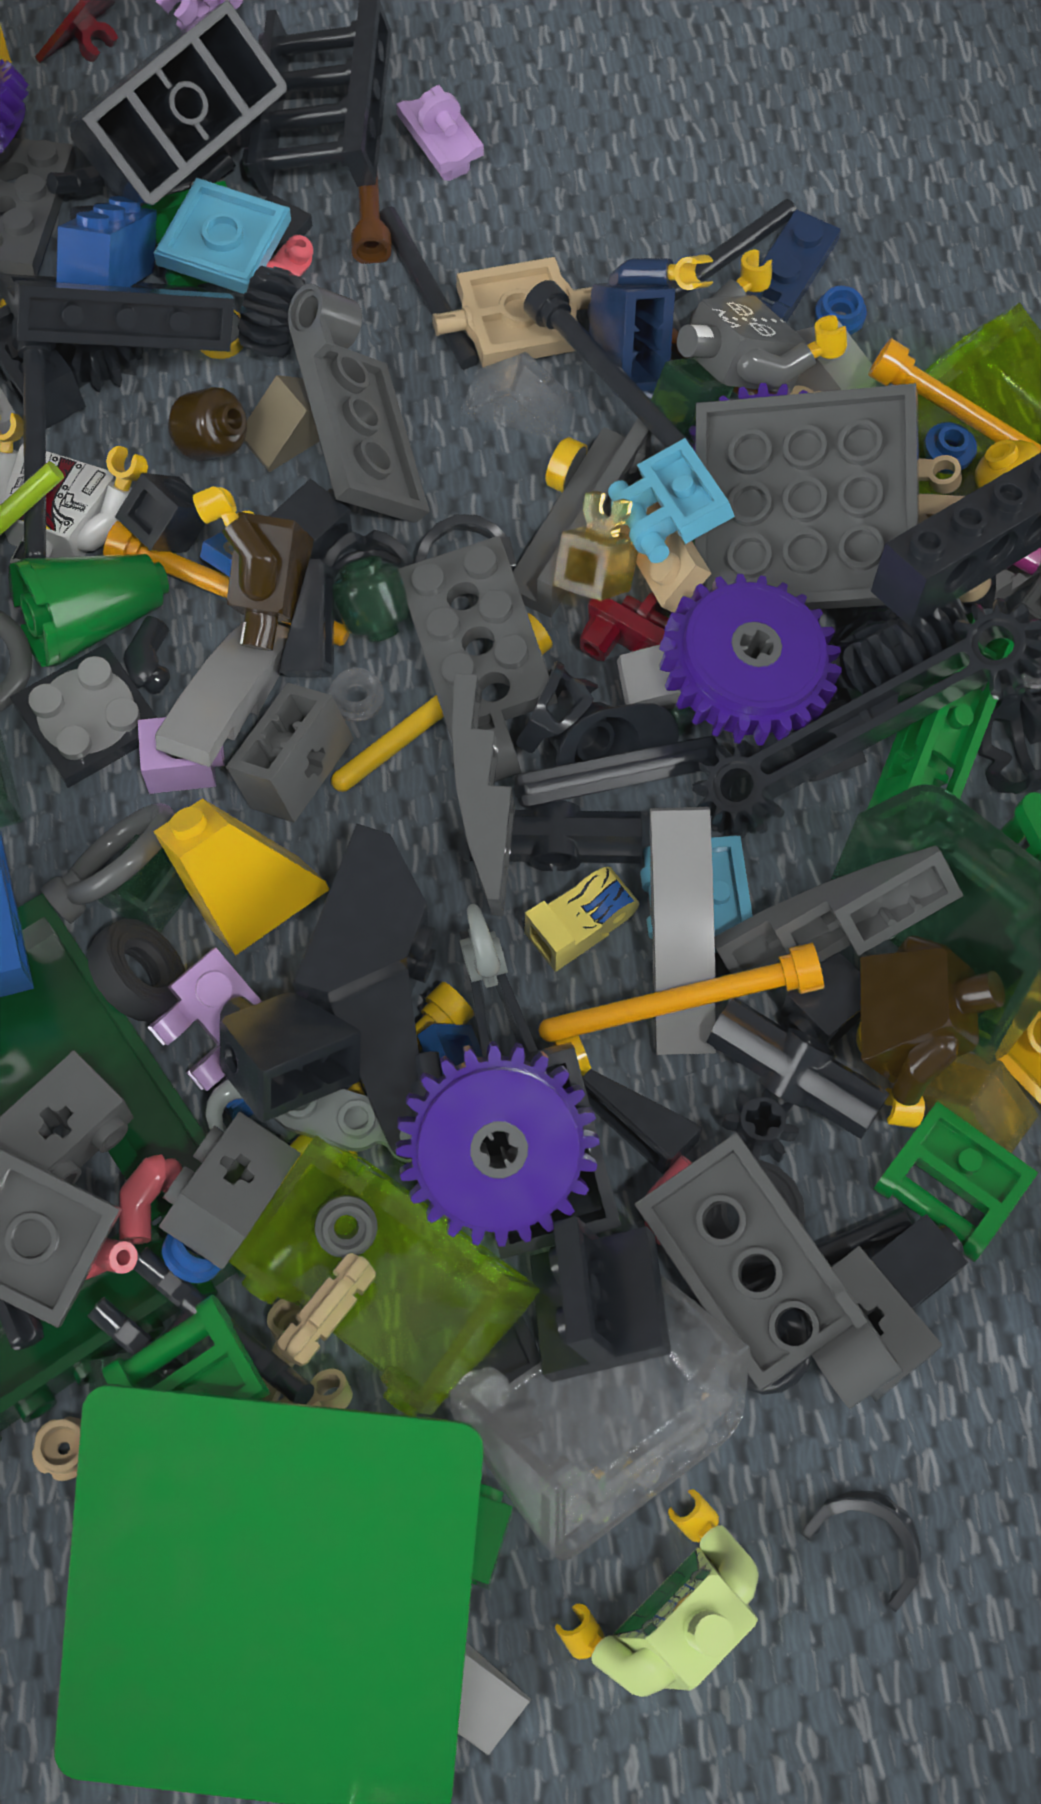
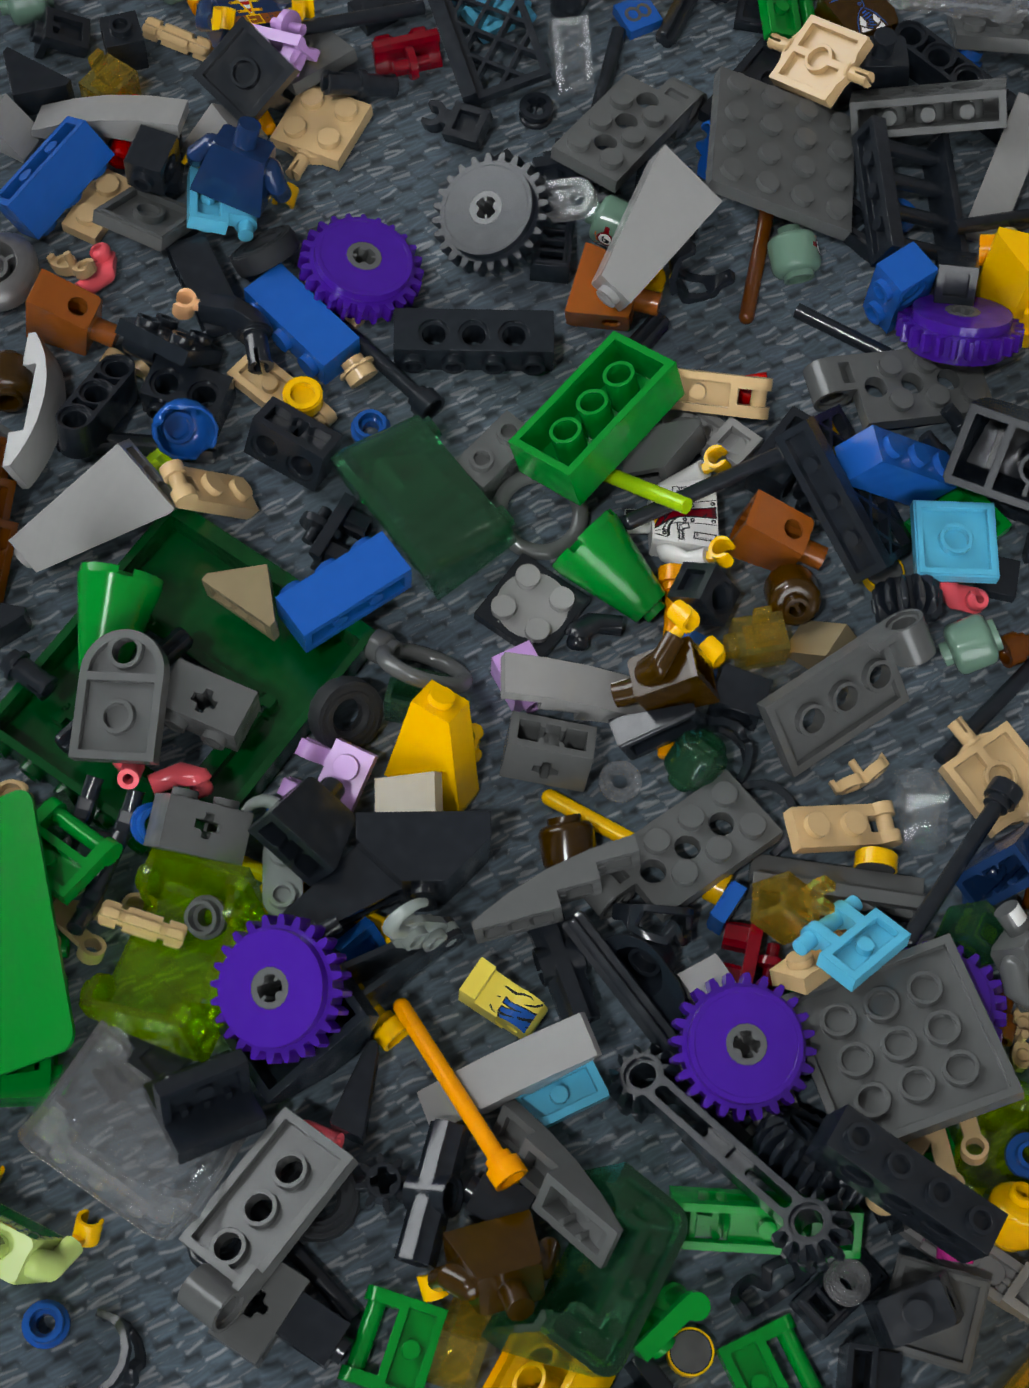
camera: 65 degrees right, 0 degrees up
(125, 409) = (774, 535): none -> dark orange torso
(250, 473) = (757, 640): none -> clear yellow brick
(289, 918) = (409, 792): none -> slope
(352, 268) = (971, 644): none -> sand green head
(416, 775) = (565, 838): none -> dark brown head
(458, 445) = (859, 778): none -> tan piece
(514, 481) = (841, 827): none -> tan plate
(566, 636) = (726, 907): none -> blue tile
(820, 1601) = (35, 1314): none -> blue plate

